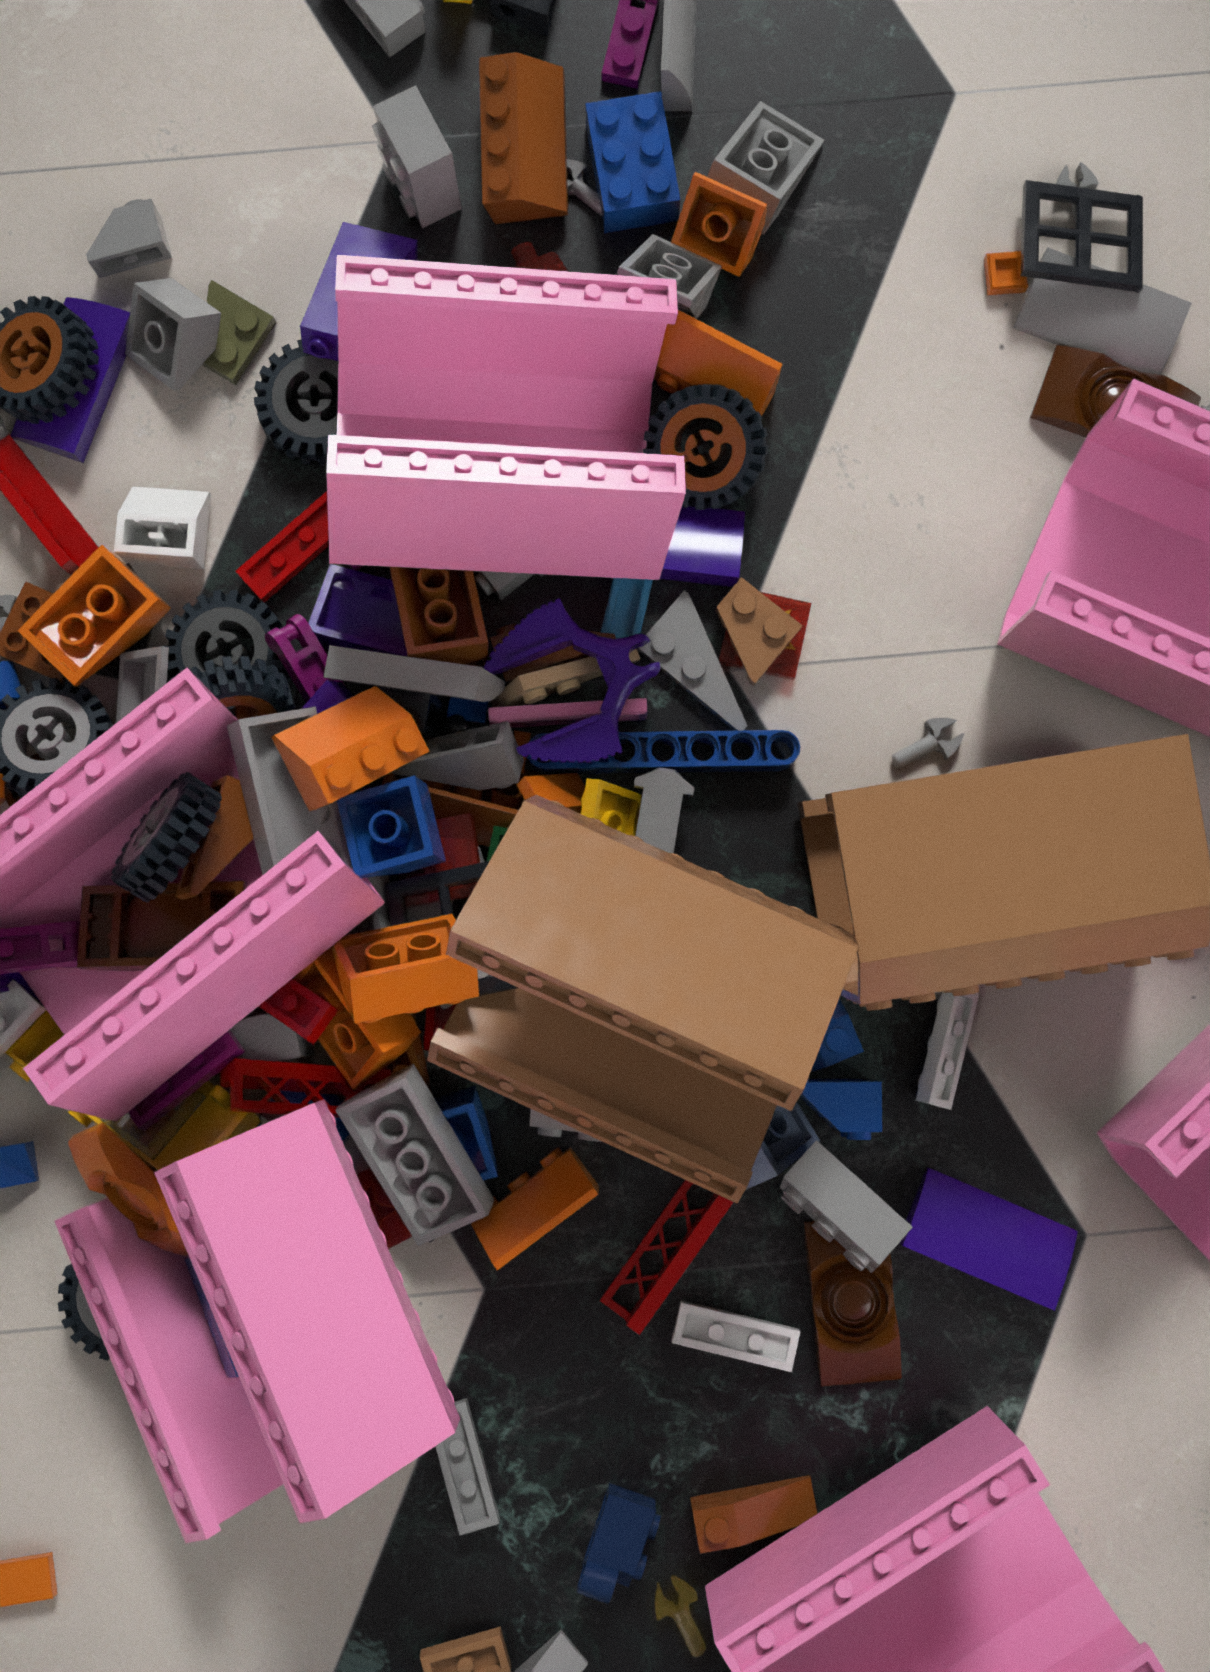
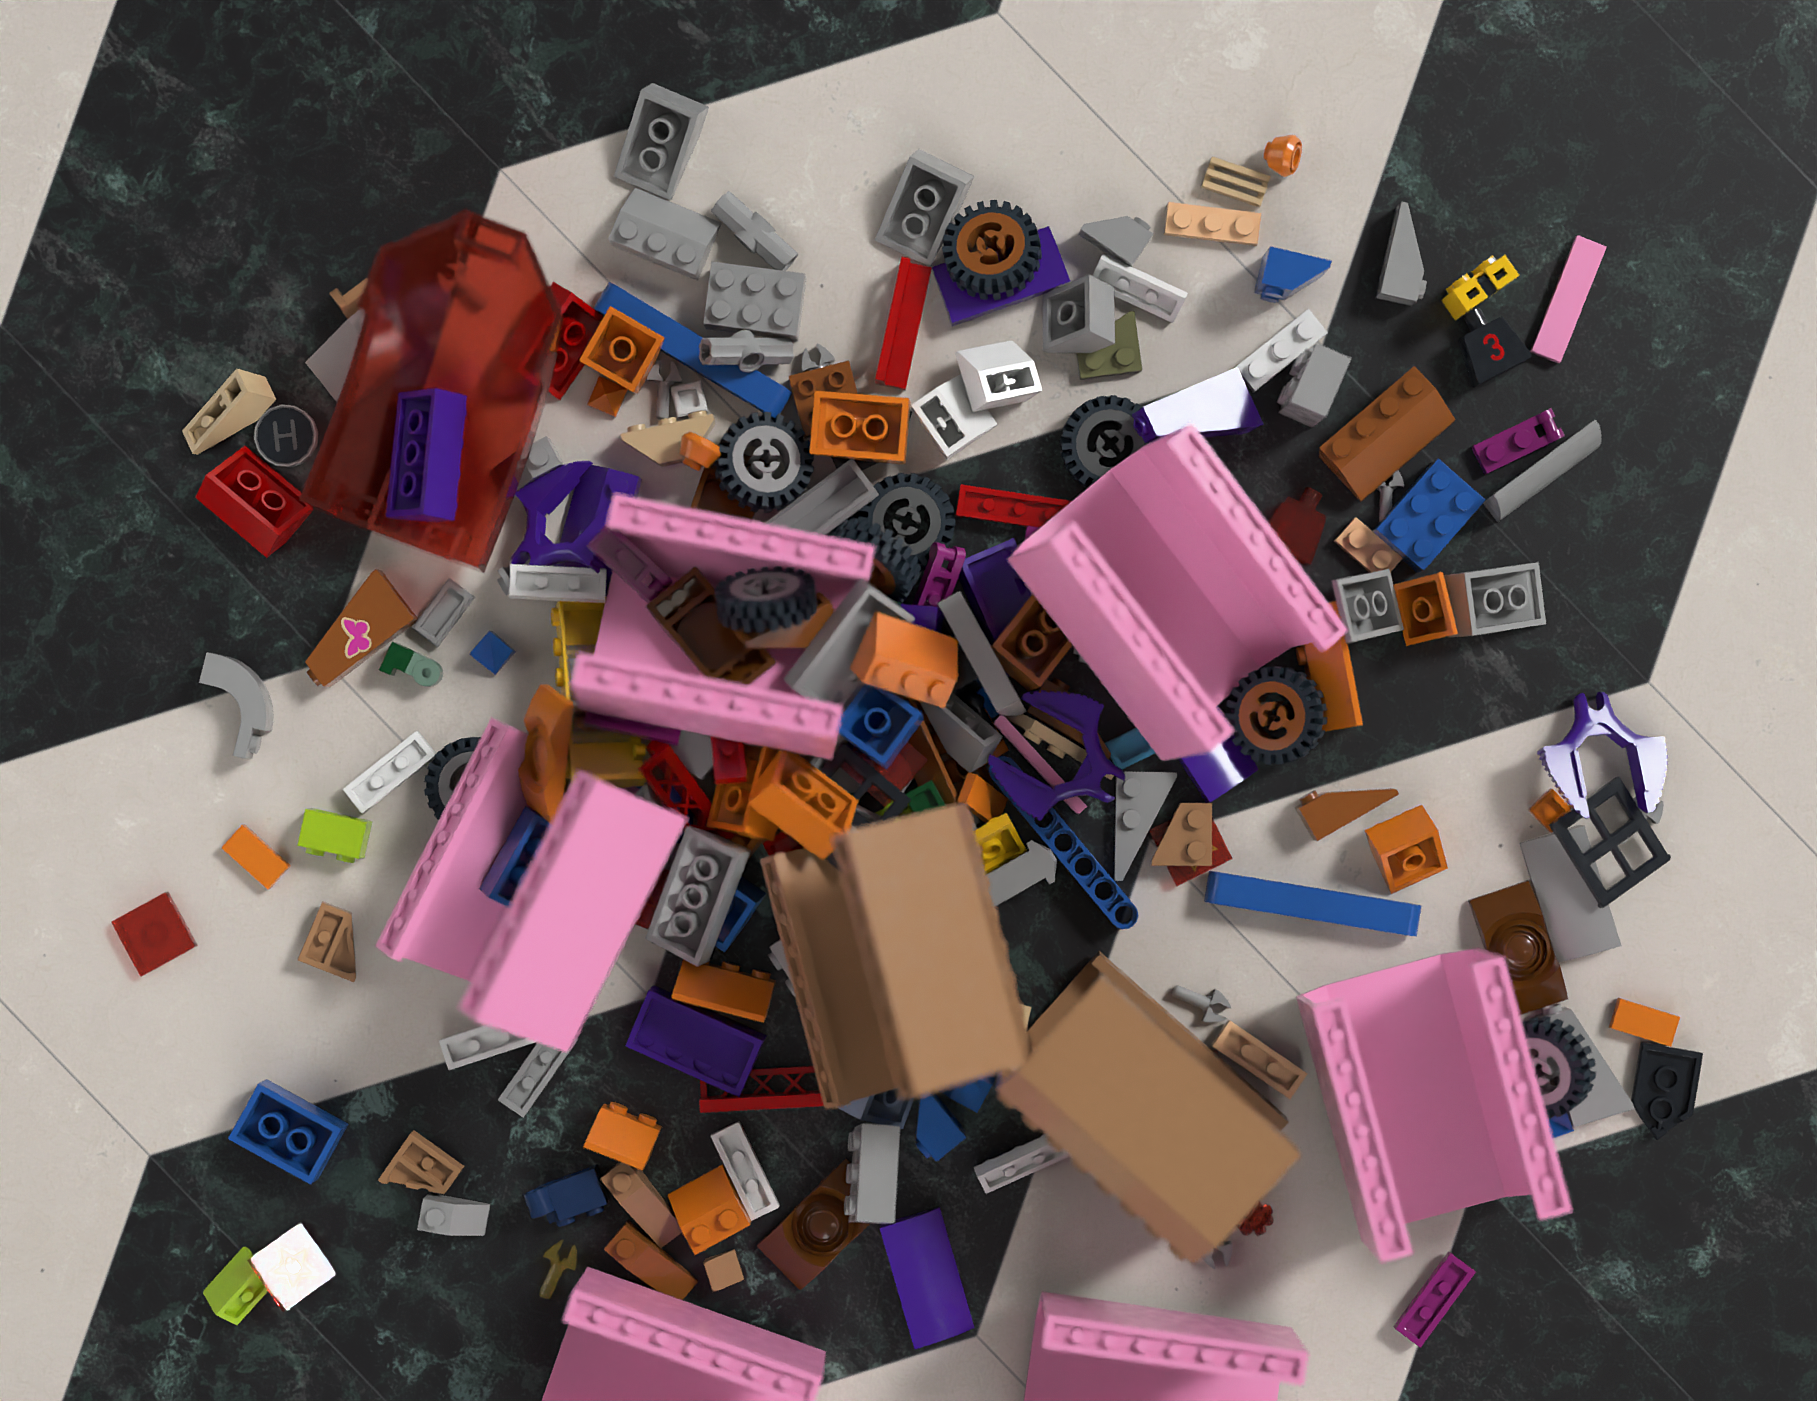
camera: 50 degrees right, 5 degrees up
(41, 1371) = (390, 772): none -> white plate
(53, 1480) = (334, 834): none -> lime brick
(161, 1576) = (331, 942): none -> medium nougat wing
(163, 451) = (997, 375): none -> white slope
(169, 90) = (1225, 165): none -> tan tile
(183, 28) = (1283, 154): none -> orange cone
(194, 146) = (1212, 224): none -> light nougat plate
(197, 254) = (1140, 288): none -> white plate
(294, 103) = (1287, 272): none -> blue slope
(363, 176) = (1281, 350): none -> white plate
(387, 1510) = (478, 1045): none -> white plate
(564, 1279) = (696, 1041): none -> dark purple slope
(600, 1435) = (623, 1135): none -> orange slope
(611, 245) = (1367, 547): none -> light nougat plate
(683, 1468) = (642, 1202): none -> medium nougat slope
(746, 1407) = (709, 1209): none -> orange slope
(819, 1442) = (723, 1270): none -> medium nougat slope
(841, 470) = (1332, 810): none -> dark orange slope
(916, 561) = (1312, 903): none -> blue beam
(935, 430) = (1407, 848): none -> orange slope
(982, 217) = (1644, 753): none -> piece
(1029, 733) = (1259, 1059): none -> light nougat plate

